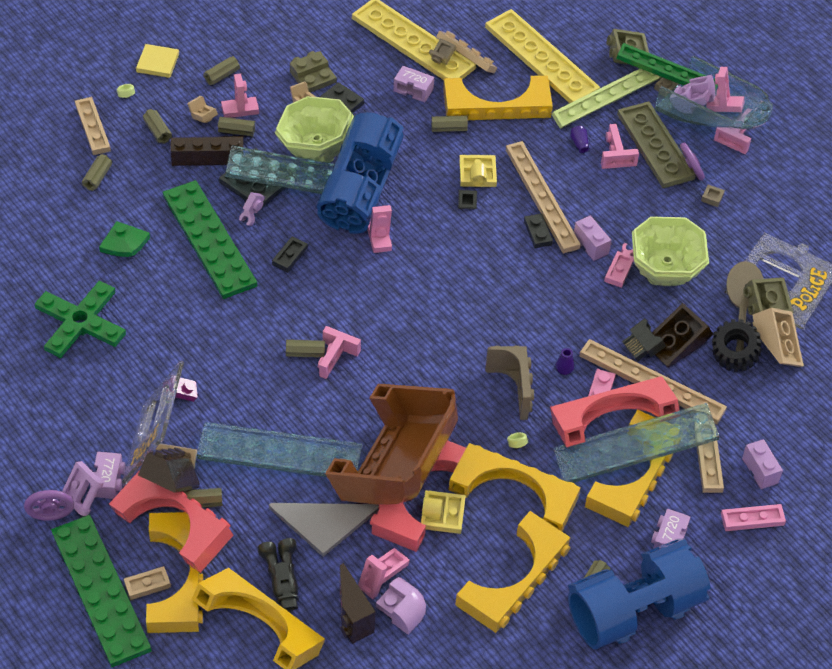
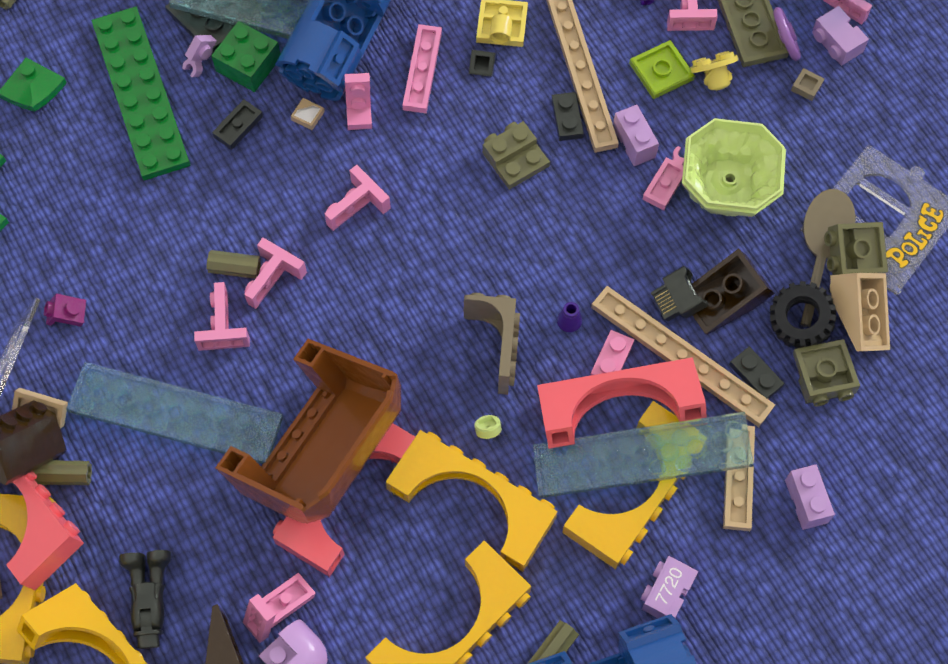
camera: 10 degrees right, 15 degrees up
(288, 207) = (246, 56): none -> green brick
(304, 396) = (220, 335): none -> bright pink bracket
(323, 524) = (214, 524): light grey tile -> none
(341, 244) = (307, 114): none -> tan tile
(394, 291) = (356, 199): none -> bright pink bracket
(423, 206) = (422, 68): none -> bright pink plate
(443, 511) = (371, 524): light yellow plate -> none
(503, 258) = (515, 154): none -> olive plate
(602, 194) = (661, 69): none -> lime tile
(643, 190) = (716, 72): none -> light yellow plate
(705, 385) = (756, 373): none -> pearl dark grey plate
(730, 161) = (839, 36): none -> lavender brick
(753, 517) = (784, 575): bright pink plate -> none
(760, 382) = (826, 372): none -> olive plate

